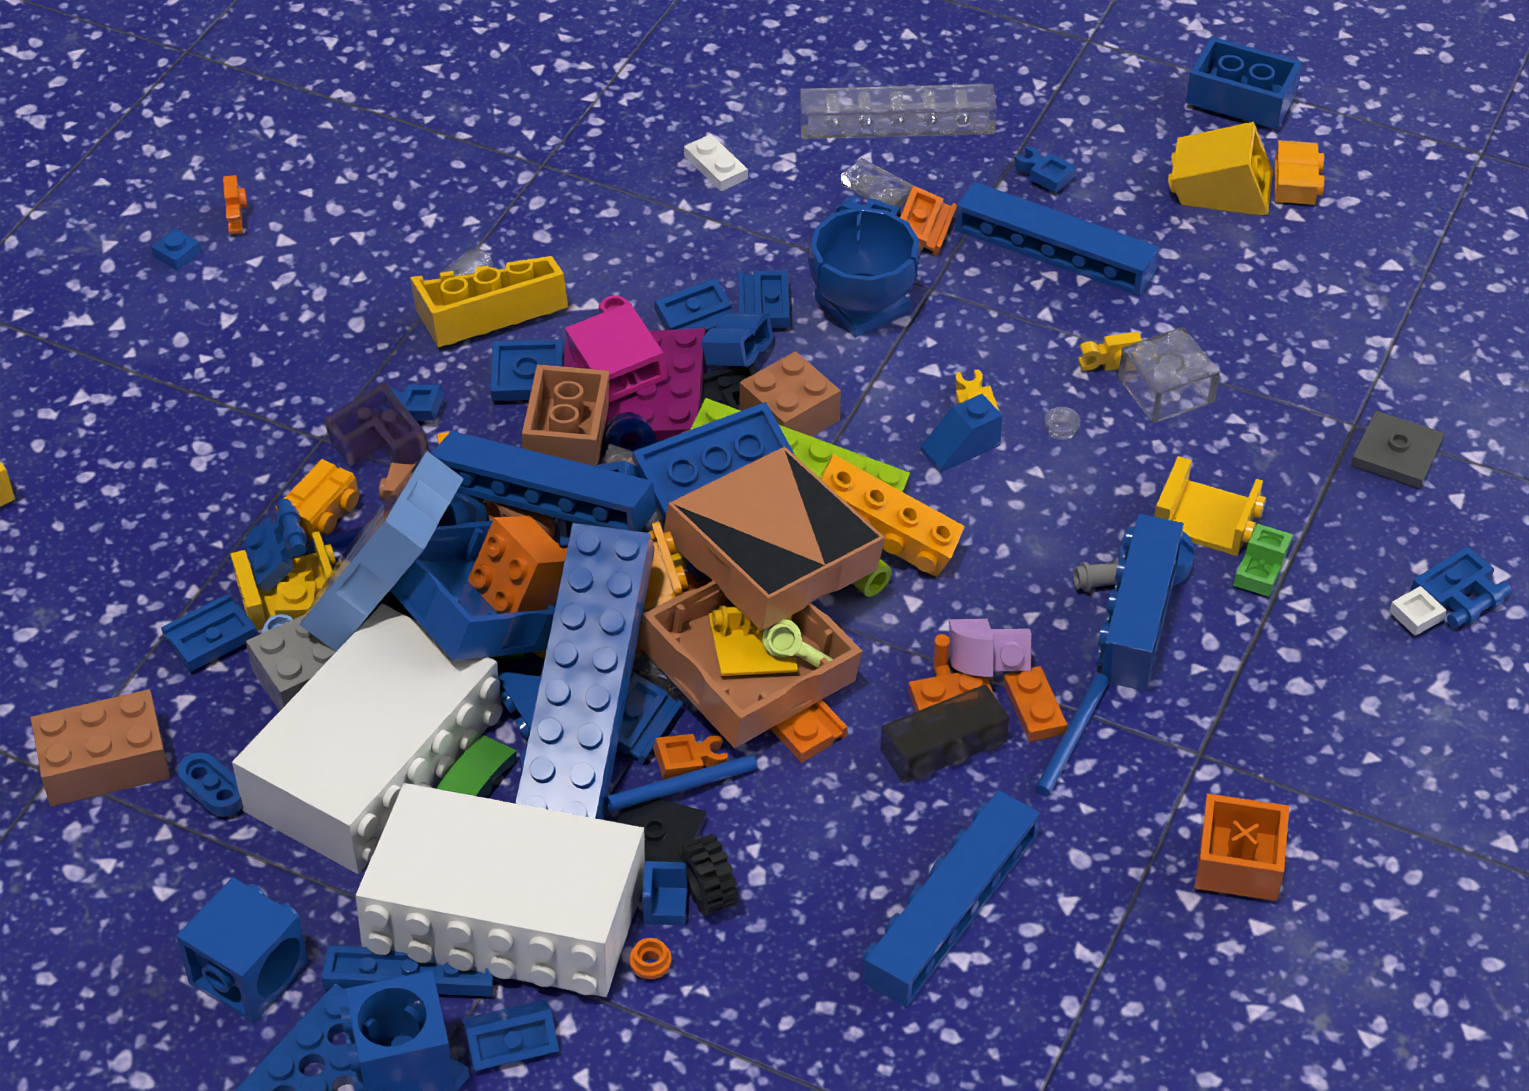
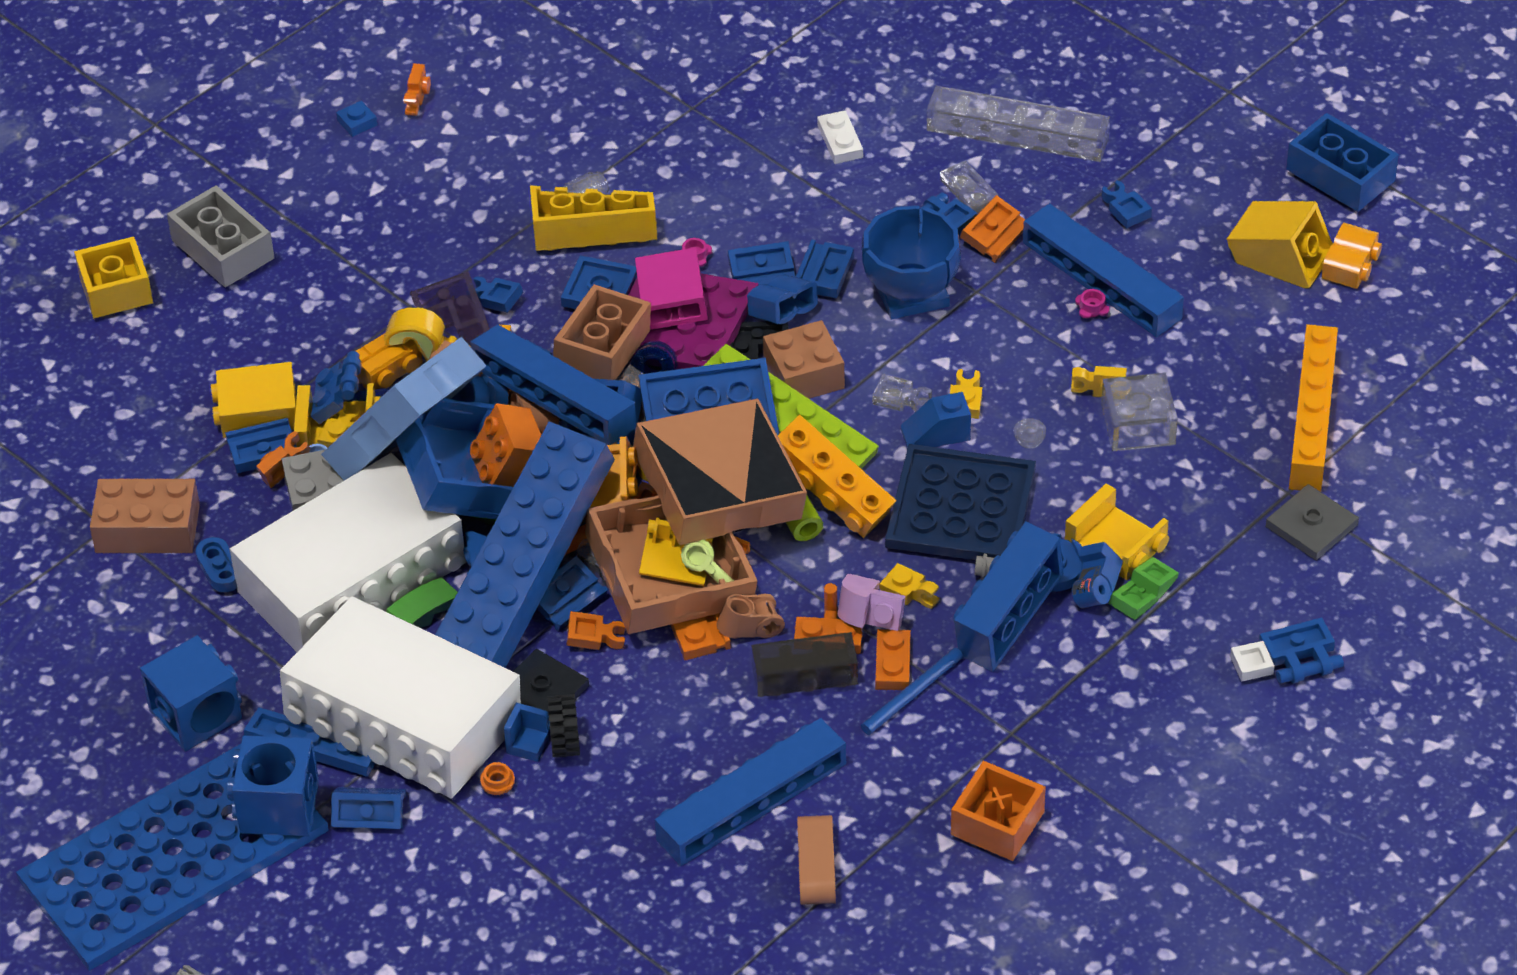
camera: 20 degrees right, 0 degrees up
(71, 406) = (220, 236): none -> light grey brick
(180, 578) = (254, 396): none -> yellow brick
(233, 650) = (271, 464): none -> orange plate
(354, 455) = (417, 325): none -> yellow animal
(680, 783) = (577, 651): blue piece -> none
(860, 695) = (748, 615): none -> nougat piece
(903, 413) = (898, 392): none -> clear plate
(1014, 614) = (910, 584): none -> yellow plate
(1028, 515) = (959, 502): none -> dark blue plate
(1061, 275) = (1092, 303): none -> dark pink plate
(1063, 958) = (816, 860): none -> nougat beam
(1213, 557) = (1097, 575): none -> blue leg
(1343, 332) = (1313, 407): none -> light orange brick

